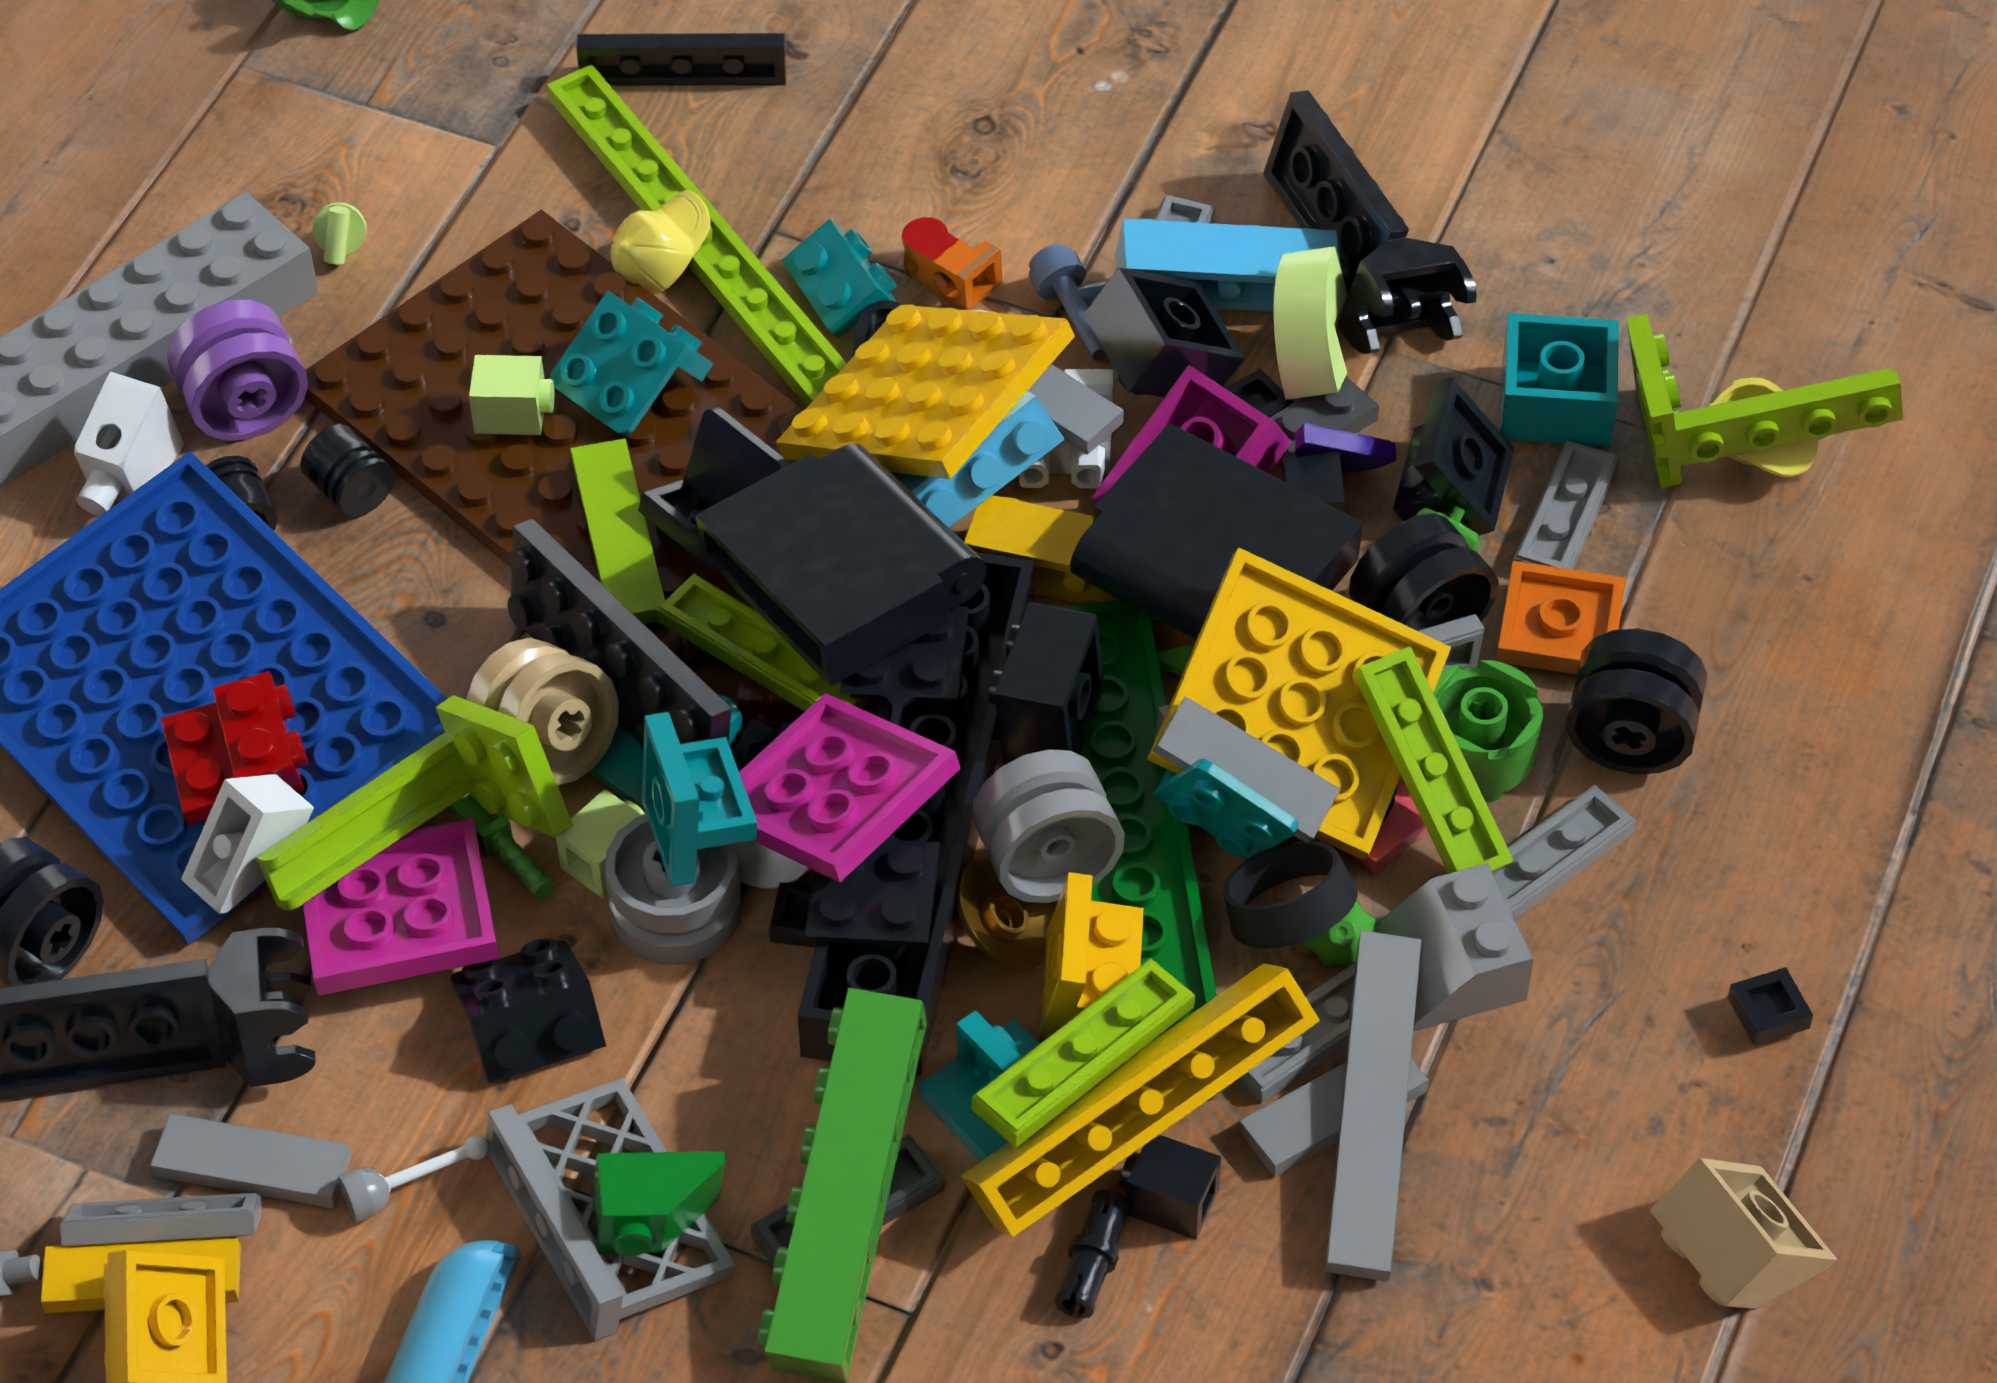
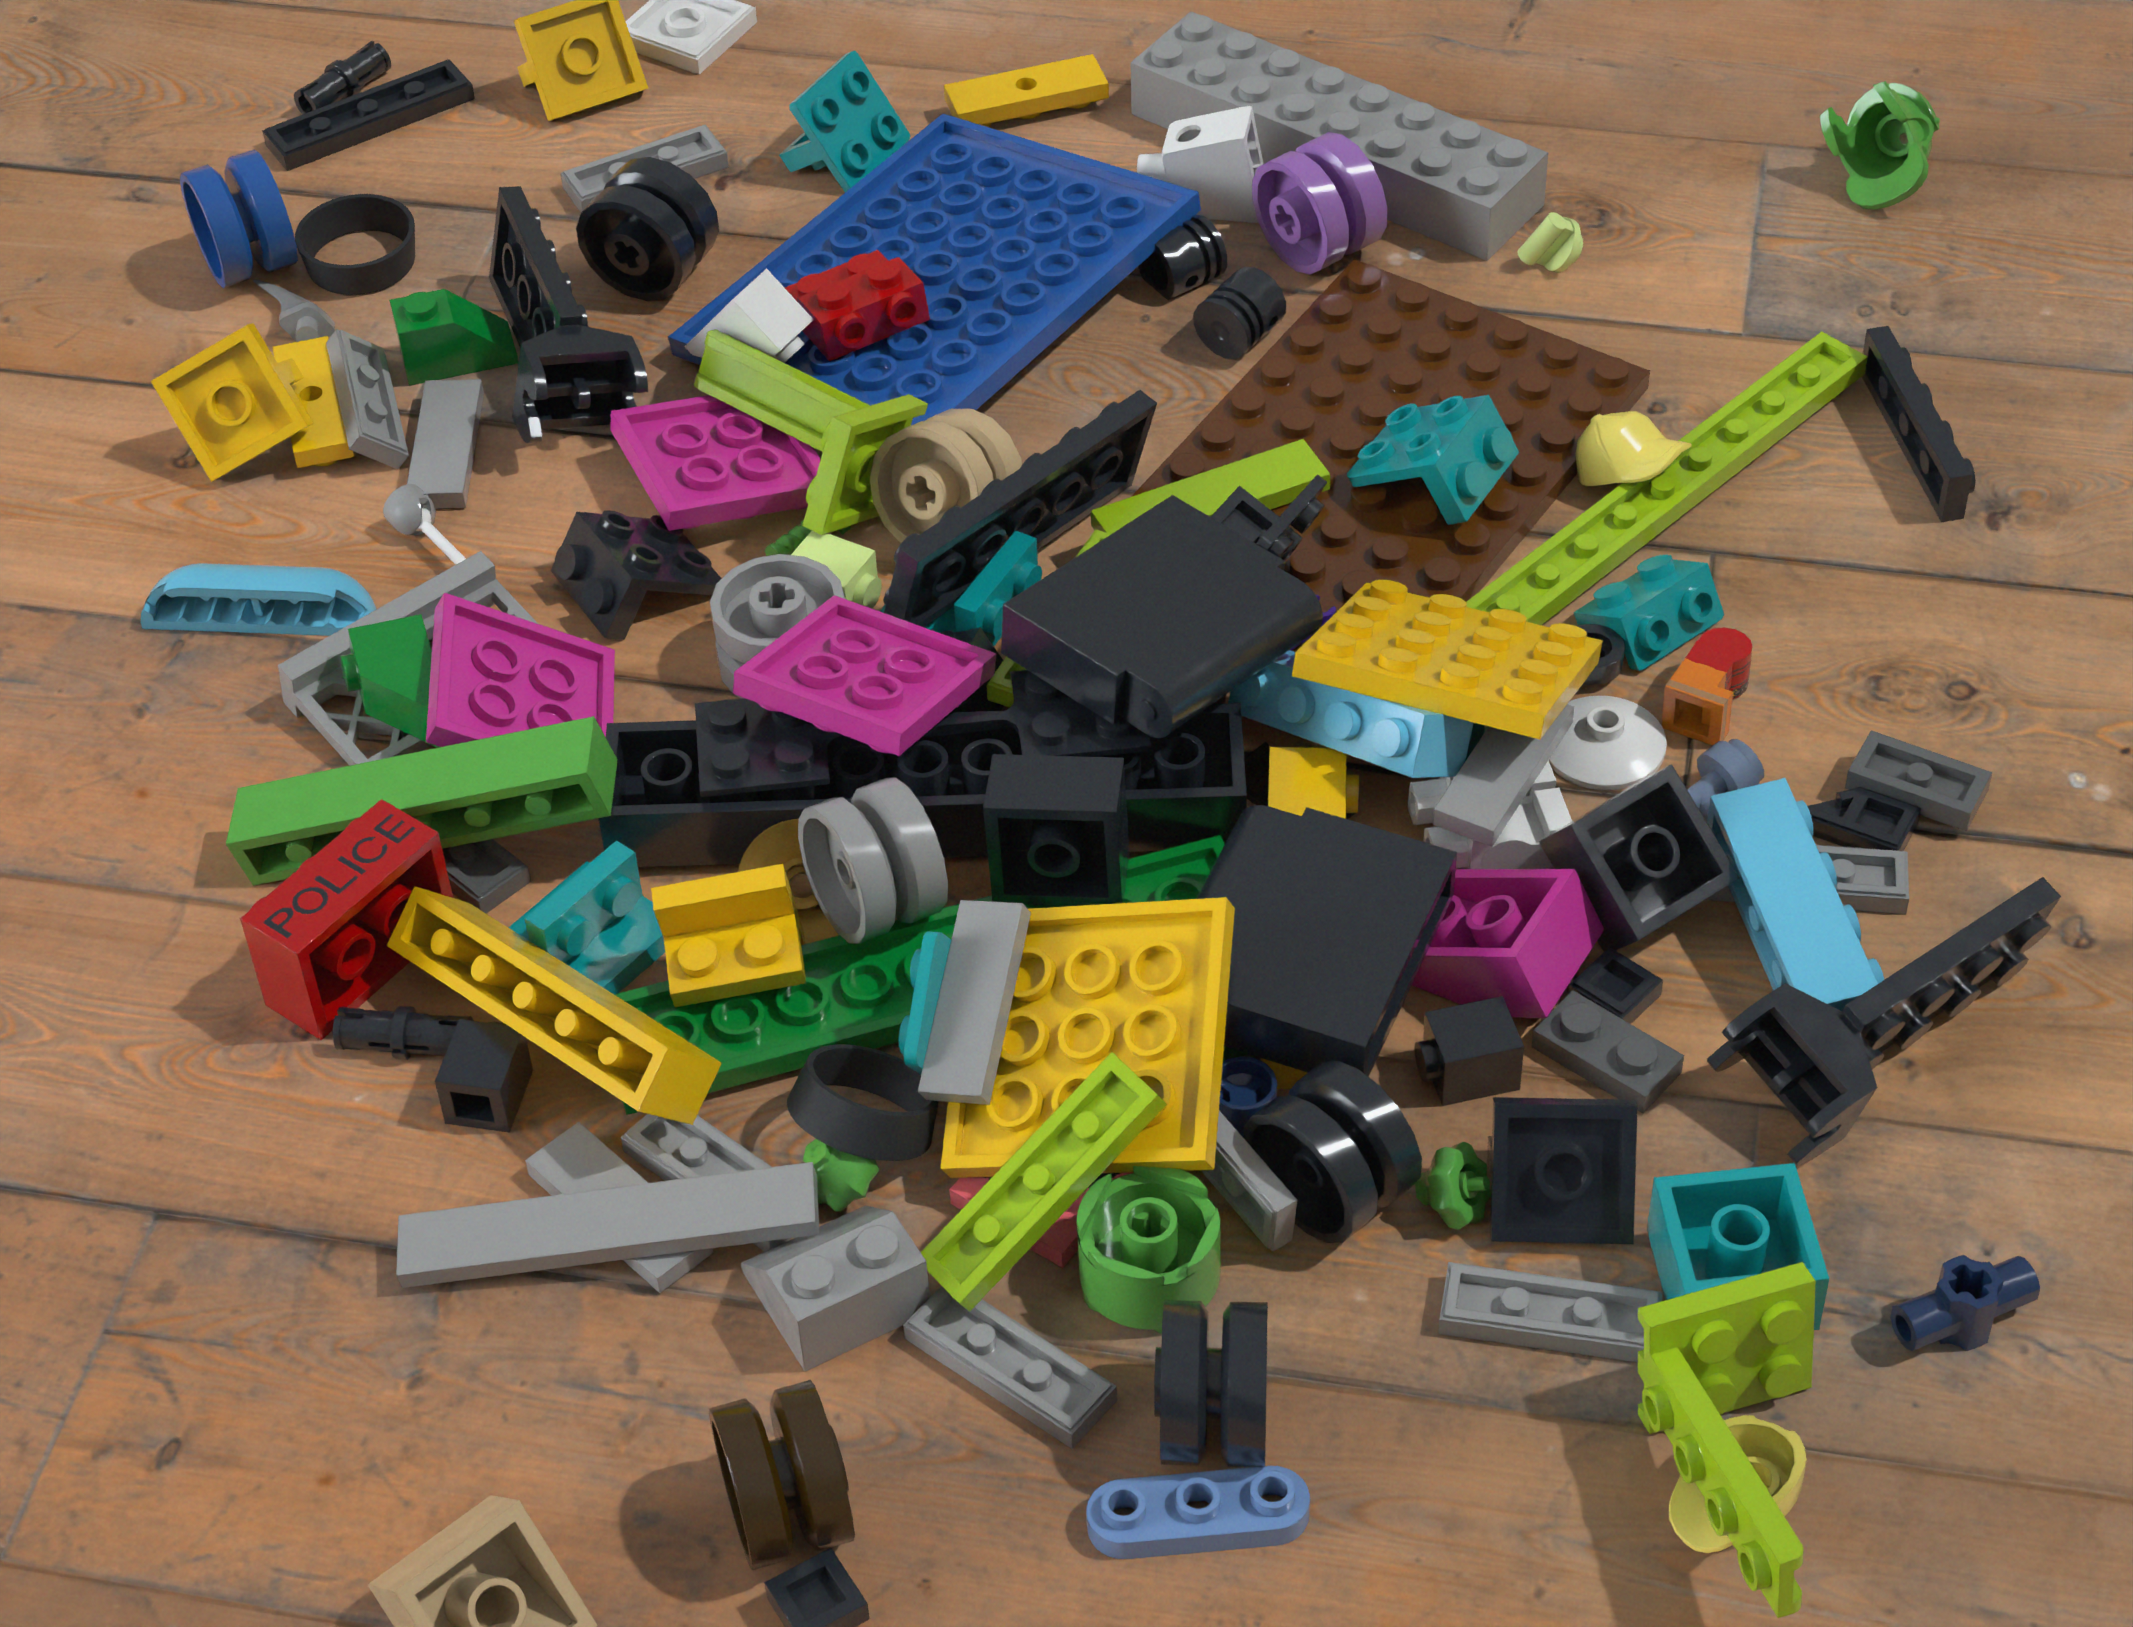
camera: 80 degrees right, 5 degrees down
(91, 1141) = (449, 336): none -> green slope
(509, 395) = (1353, 379): yellowish green brick -> none
(691, 797) = (807, 554): teal bracket -> none
(710, 1097) = (510, 675): none -> dark pink plate
(975, 1262) = (329, 924): none -> red brick
(1082, 1053) = (590, 940): lime tile -> none
(1093, 167) = (1935, 783): none -> dark grey plate
(1106, 212) = (1865, 820): none -> black tile
(1306, 305) = (1721, 963): yellowish green brick -> none
(1356, 450) = (1539, 1045): dark purple tile -> none
(1556, 614) = (1362, 1320): orange plate -> none
(1614, 273) = (1965, 1303): none -> dark blue axle
(1678, 992) = (793, 1471): none -> dark brown wheel
(1714, 774) = (1169, 1526): none -> medium blue plate

